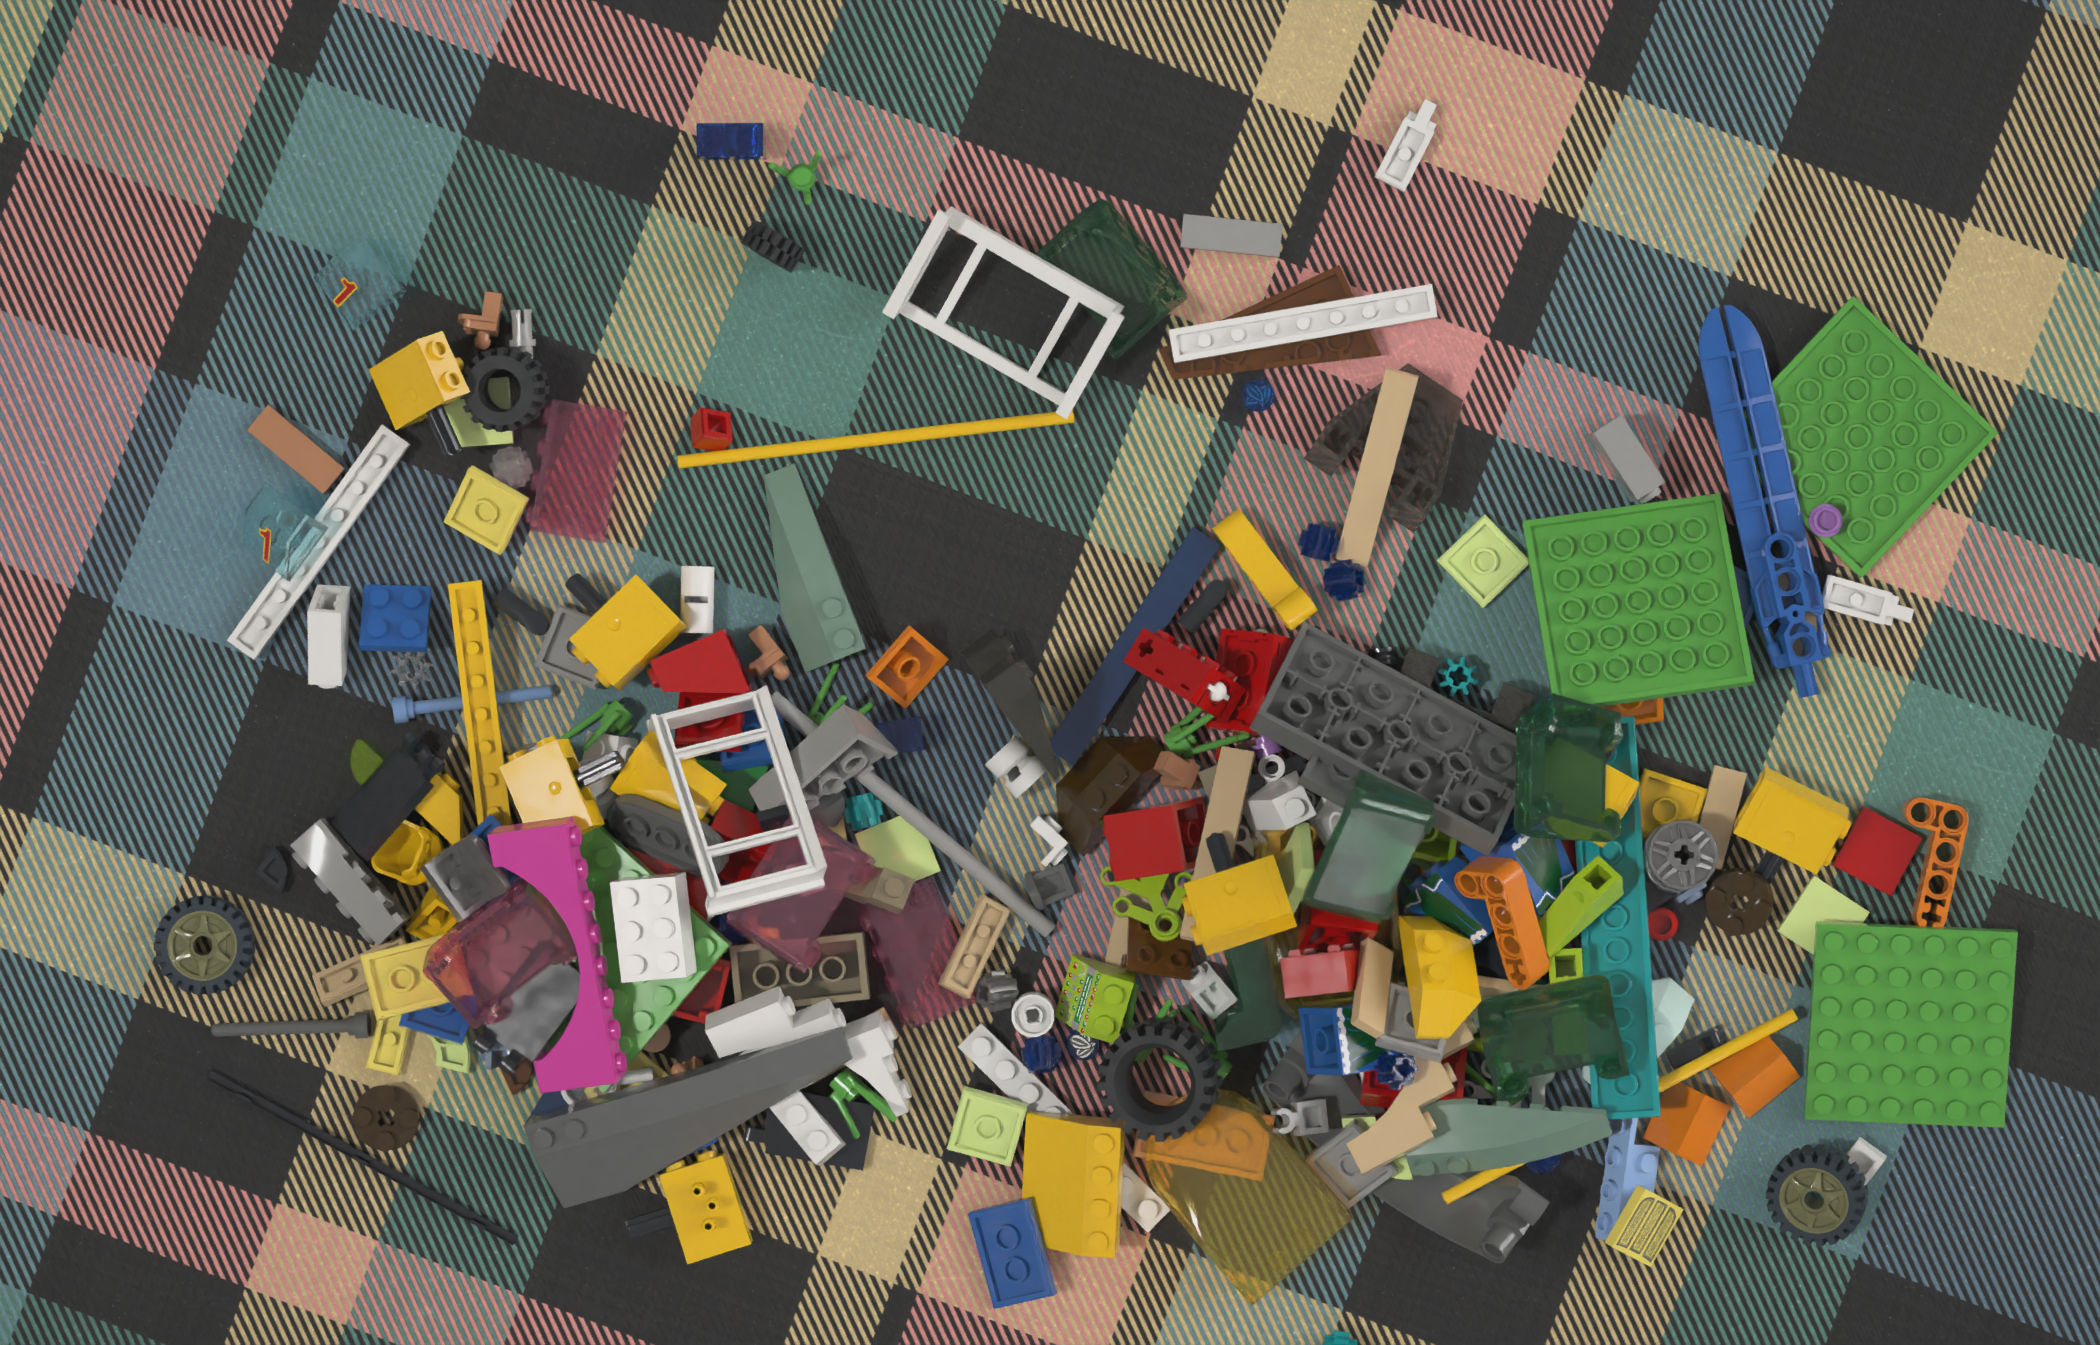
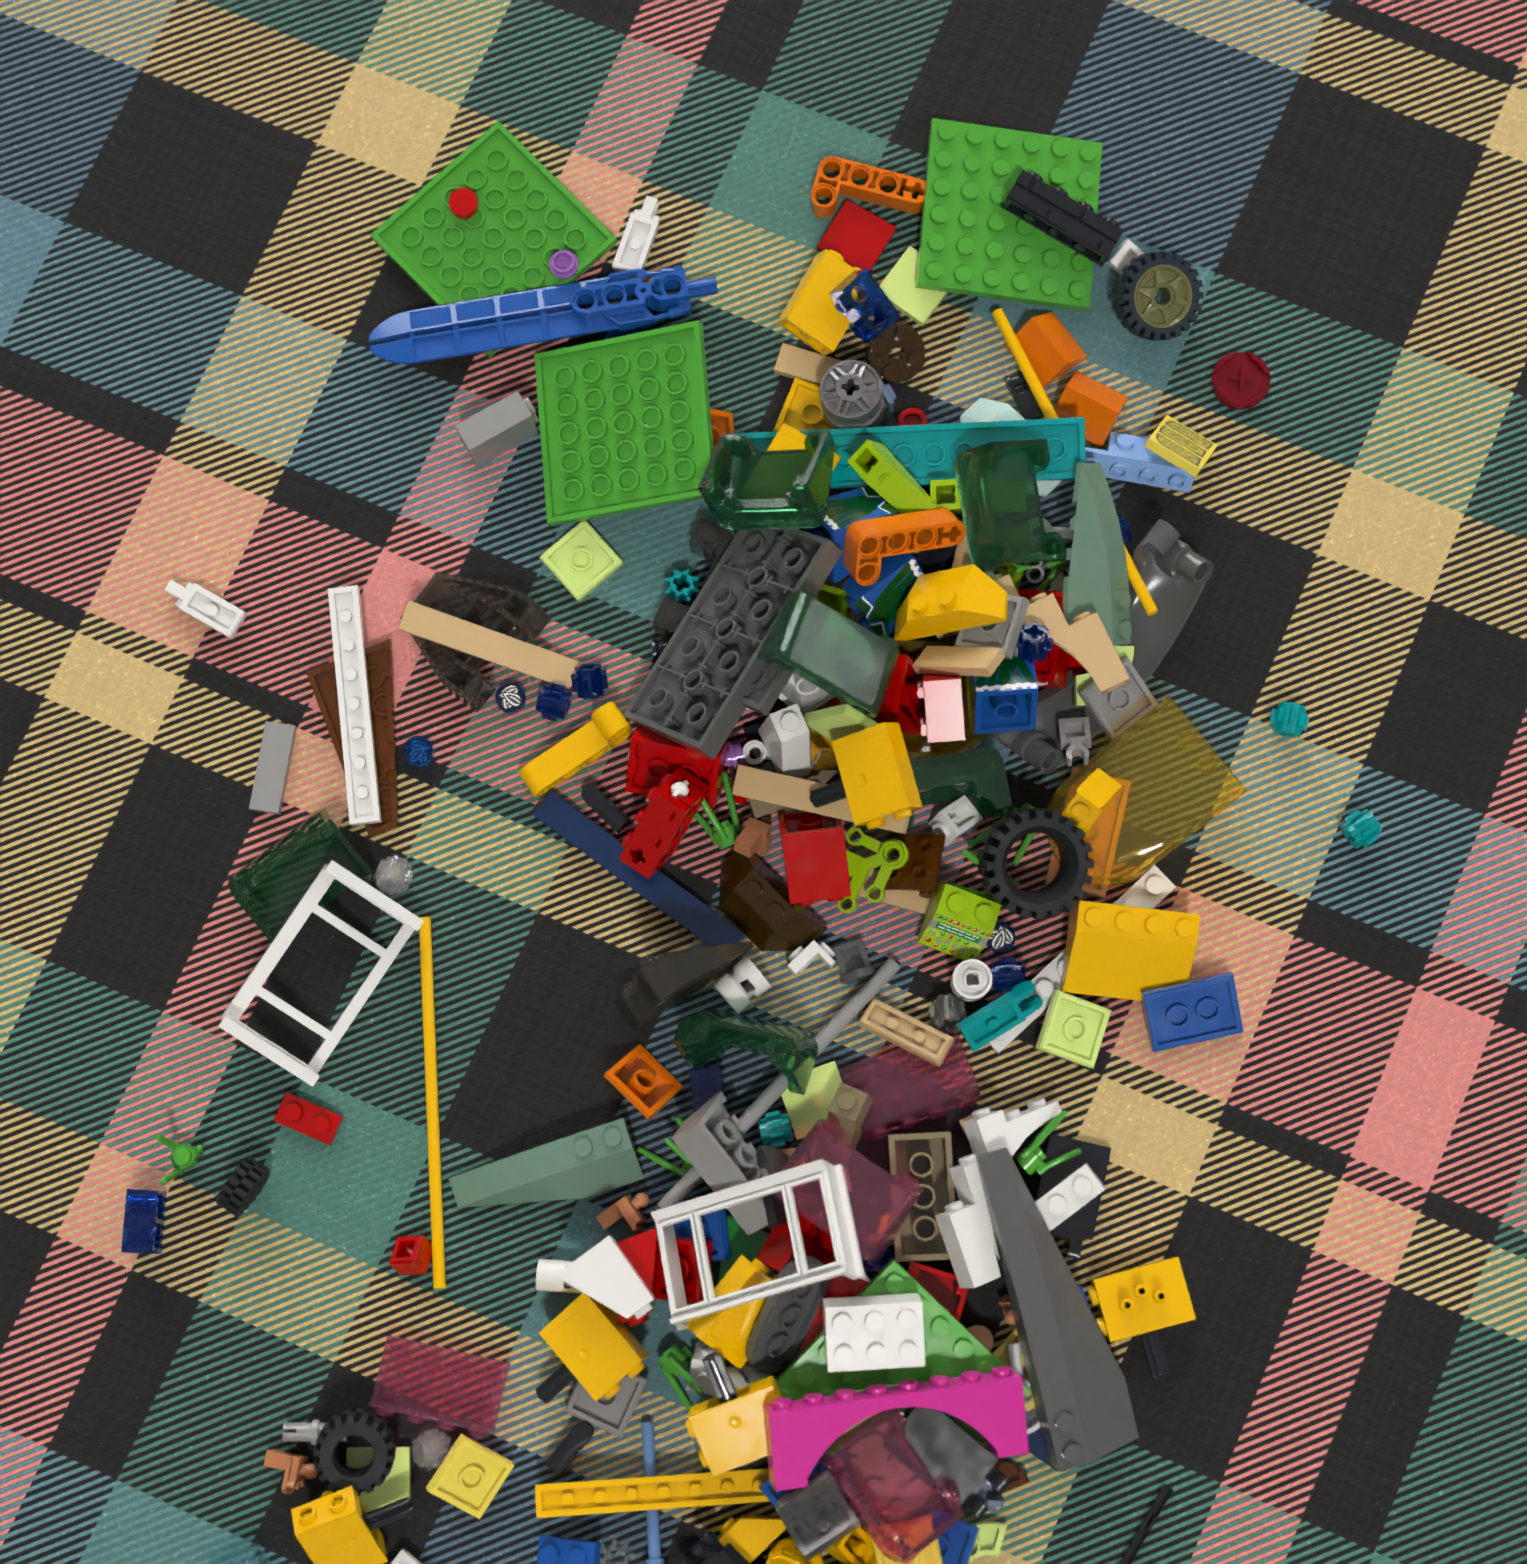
camera: 80 degrees left, 10 degrees down
(693, 648) = (609, 1279): none -> white slope
(849, 307) = (308, 1118): none -> red plate
(948, 822) = (787, 1048): none -> clear green windscreen
(996, 1047) = (1000, 1015): none -> teal hinge
(1116, 380) = (393, 875): none -> clear gear
(1232, 1137) = (1091, 799): none -> yellow slope
(1322, 493) = (510, 698): none -> tile
(1728, 1291) = (1240, 380): none -> dark red tile
(1791, 870) = (869, 299): none -> clear blue brick
(1893, 400) = (463, 203): none -> red tile
(1903, 1084) = (1062, 217): none -> black brick

